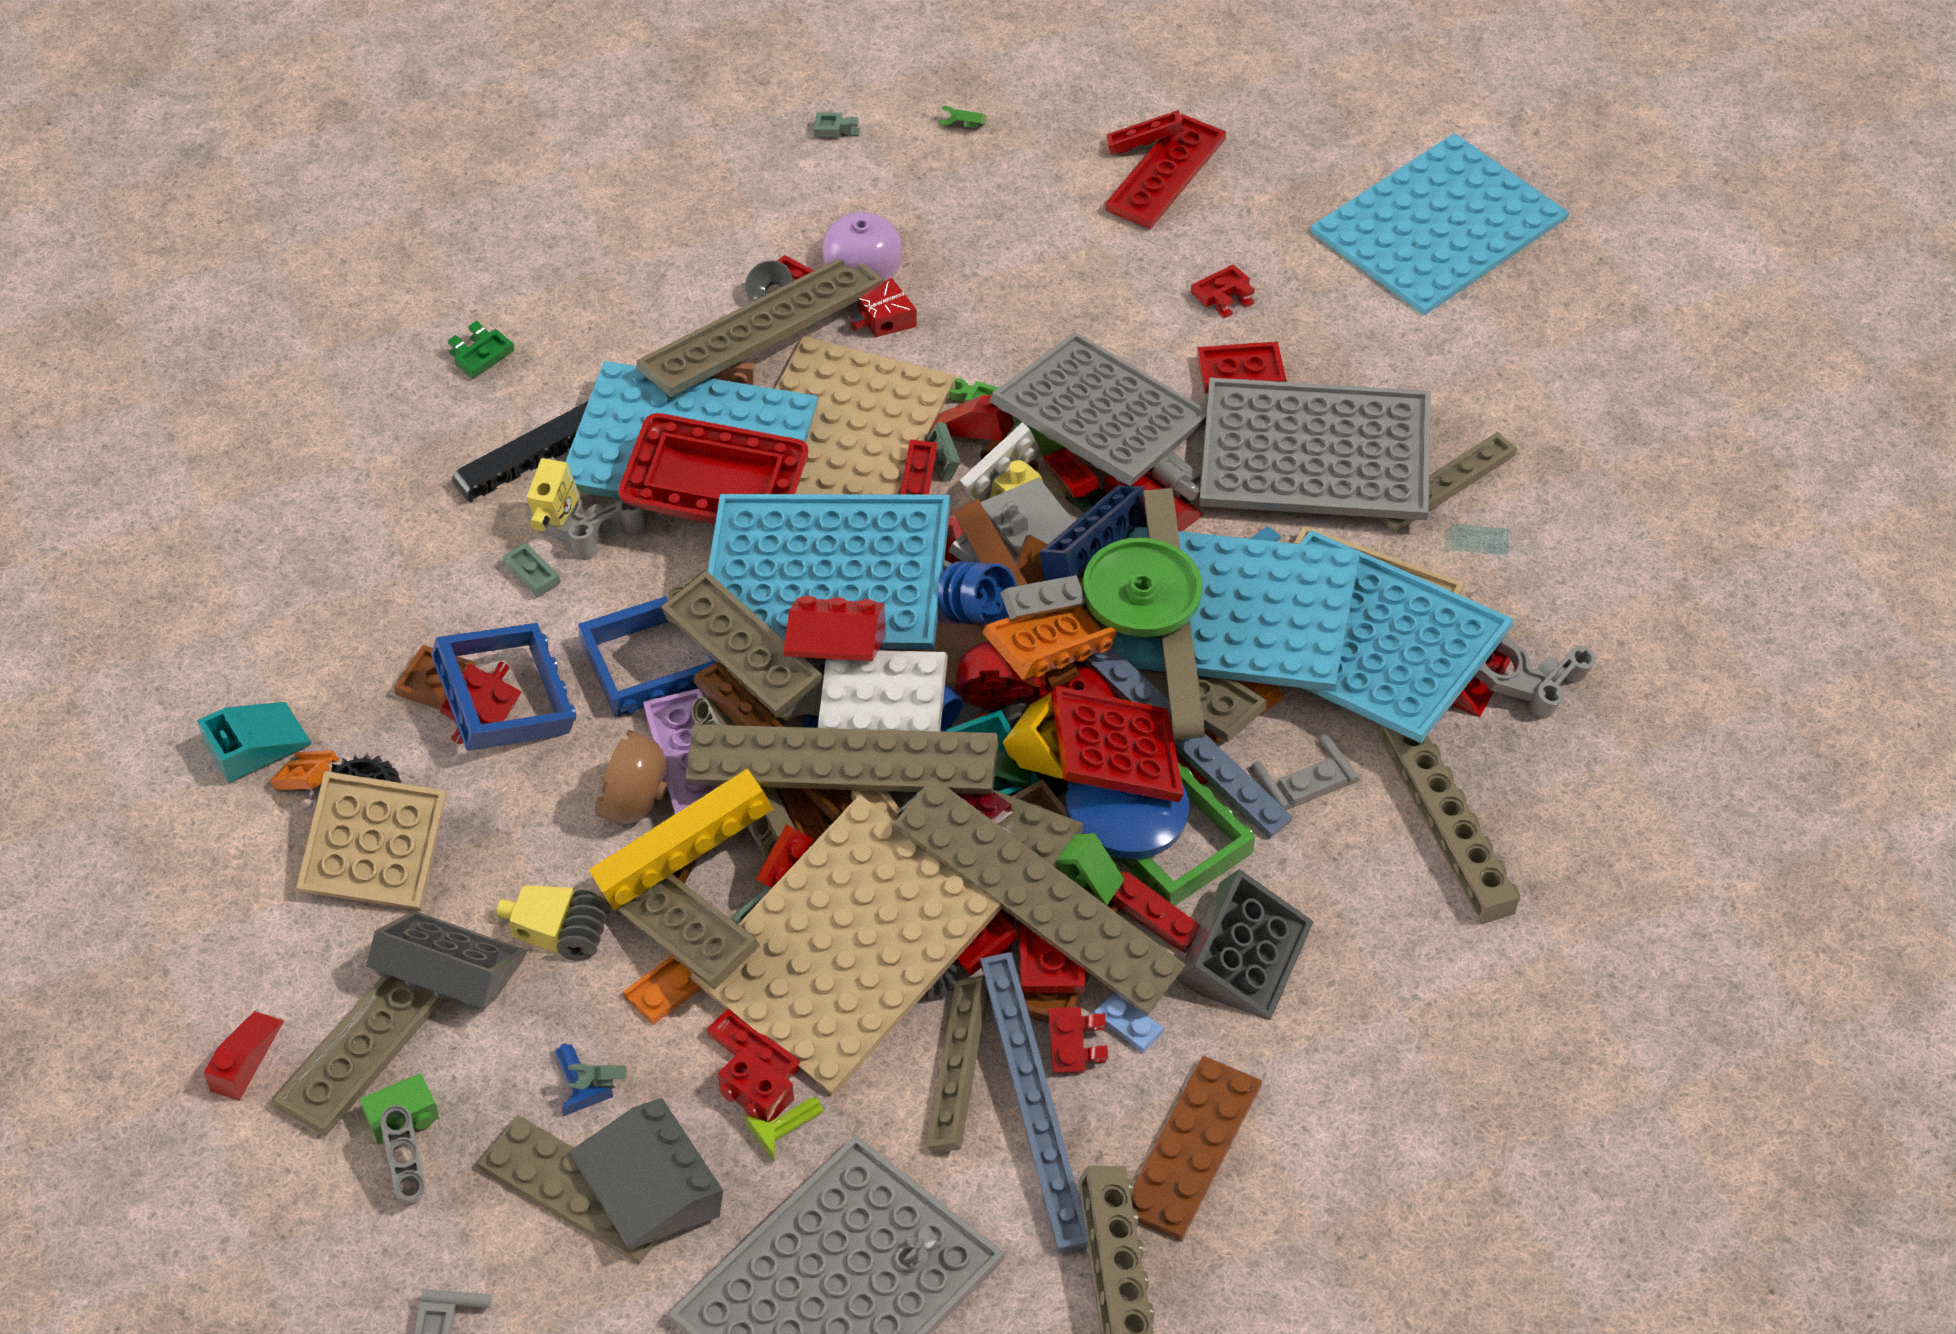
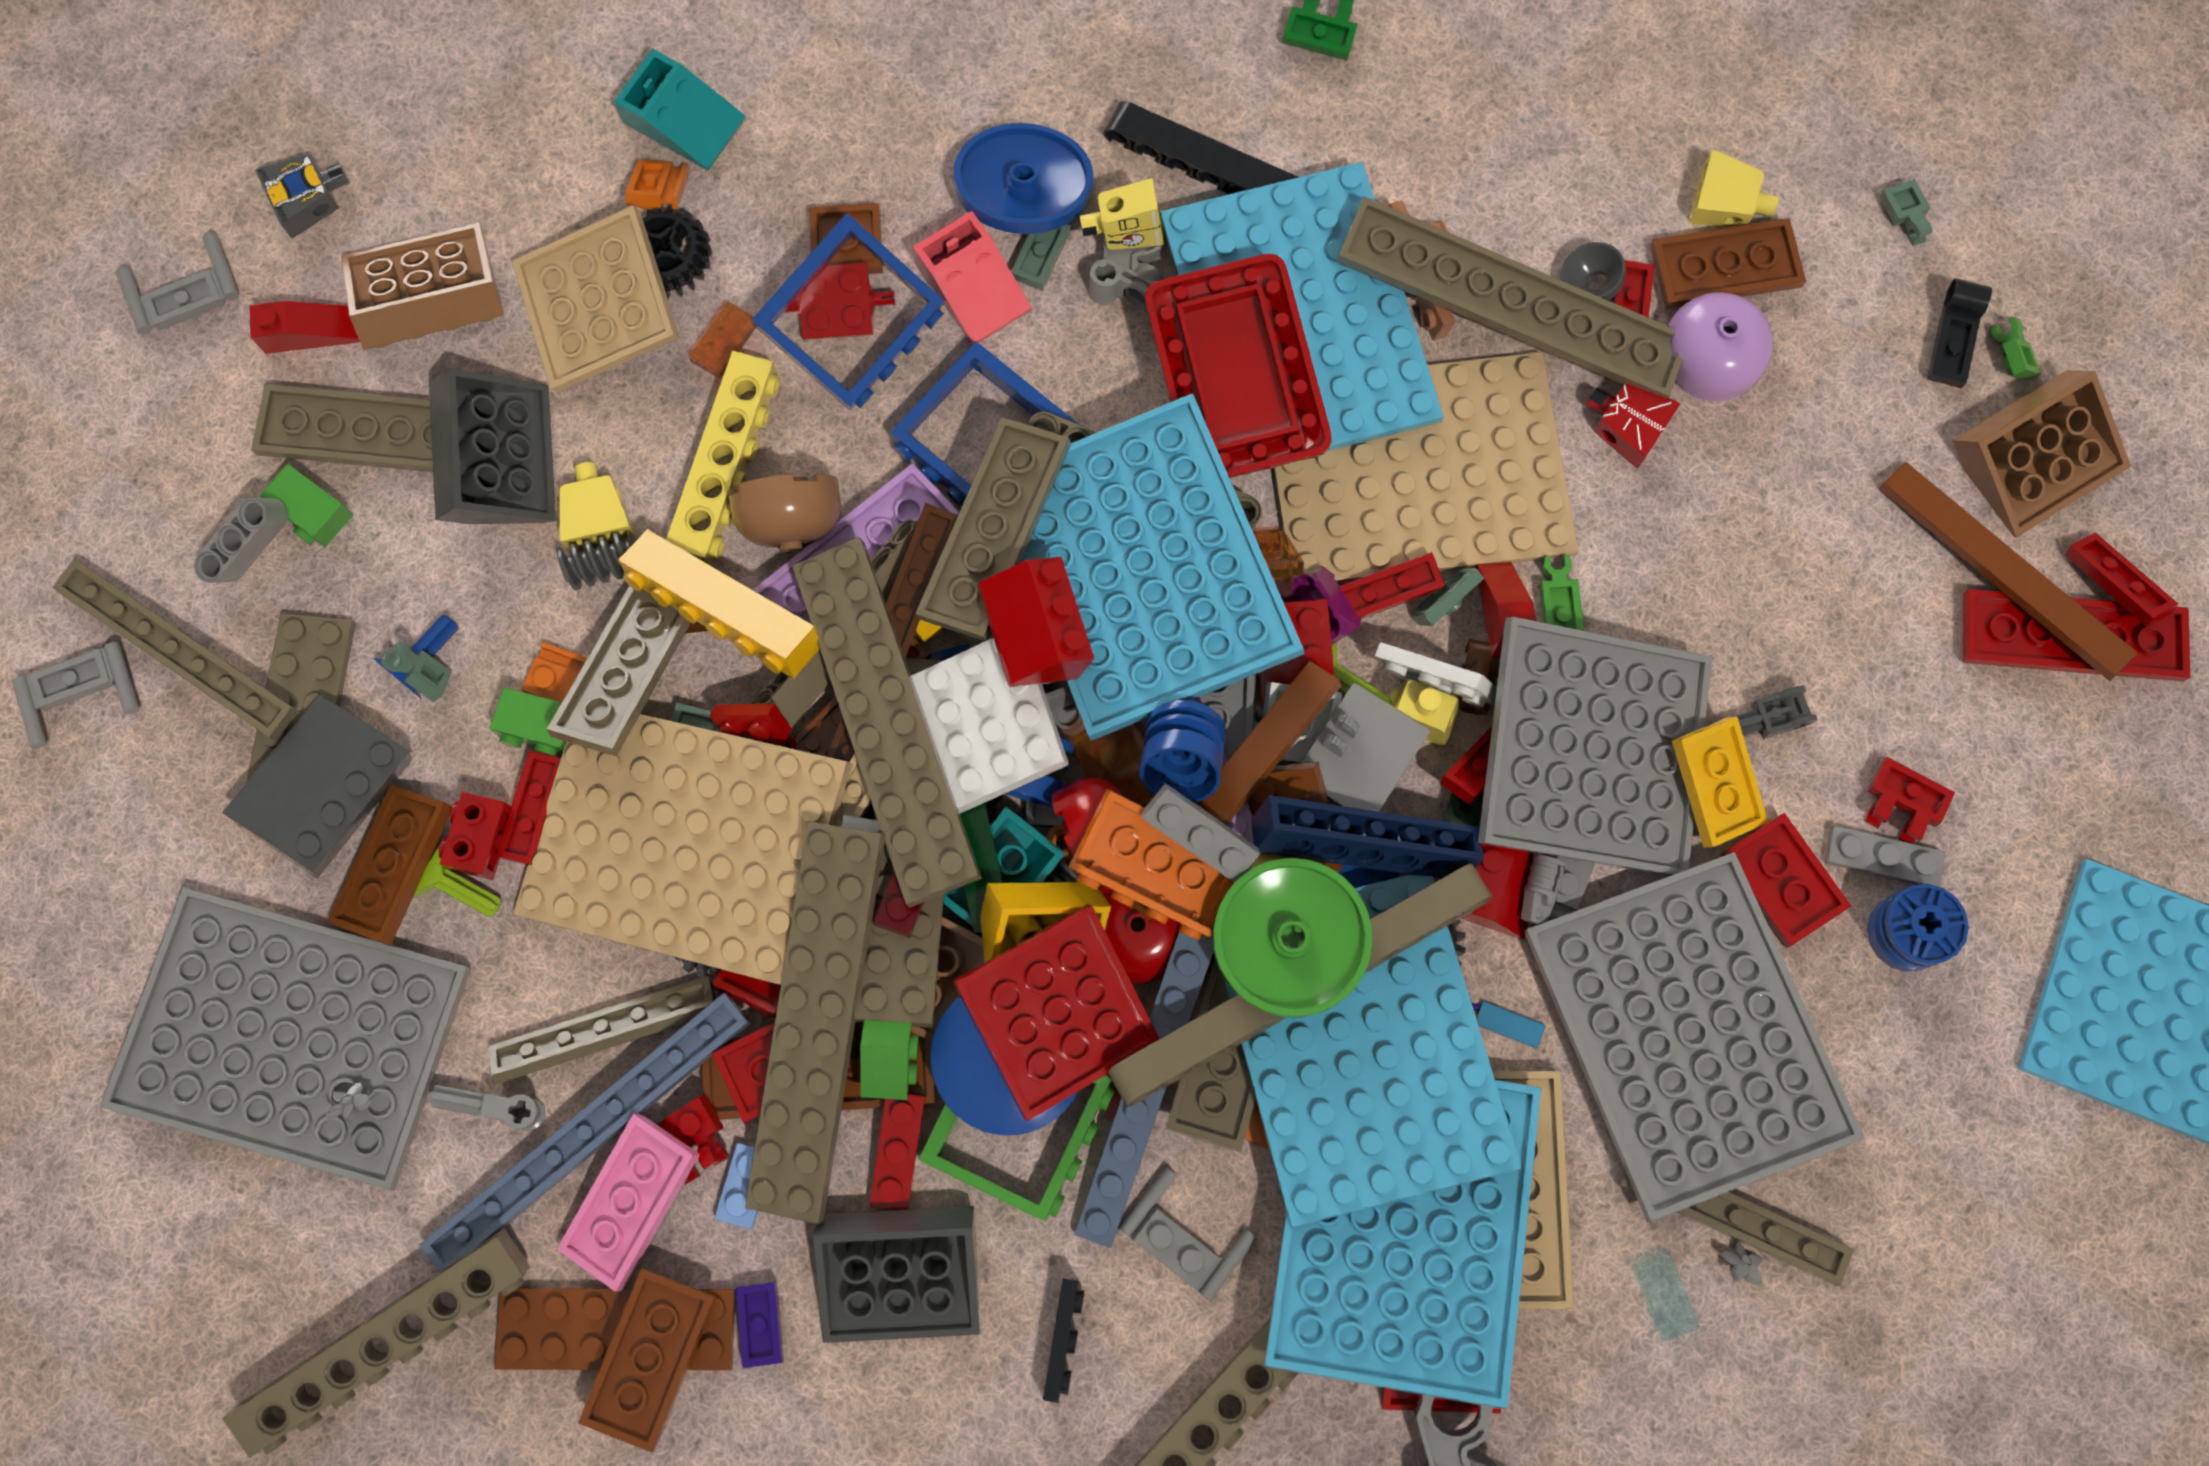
camera: 65 degrees right, 25 degrees up
(120, 1015) = (301, 191): none -> torso
(149, 1135) = (182, 298): none -> light grey plate
(269, 958) = (420, 286): none -> medium nougat slope
(458, 1245) = (175, 650): none -> dark tan plate
(459, 783) = (726, 333): none -> clear orange plate
(470, 550) = (1023, 178): none -> blue dish
(517, 602) = (971, 278): none -> coral slope
(548, 811) = (741, 375): none -> light yellow brick
(686, 1016) = (525, 720): none -> bright green brick
(743, 1155) = (390, 864): none -> dark orange plate
(760, 200) = (1730, 193): none -> light yellow torso
(806, 221) = (1728, 260): none -> dark orange plate
(919, 128) = (1958, 332): none -> black plate
(980, 1155) = (490, 1106): none -> light grey connector
(1037, 132) = (2044, 450): none -> medium nougat slope
(1103, 1088) = (628, 1202): none -> bright pink plate
(1104, 179) = (2008, 571): none -> dark orange tile
(1128, 329) = (1777, 713): none -> dark grey connector
(1159, 365) = (1720, 781): none -> yellow plate
(1229, 1117) = (647, 1360): none -> dark orange plate
(1238, 1049) = (759, 1325): none -> dark purple plate
(1254, 316) = (1884, 857): none -> light grey plate
(1310, 314) = (1905, 944): none -> blue wheel
(1343, 868) = (1063, 1341): none -> black plate
(1480, 491) = (1743, 1265): none -> light grey plant

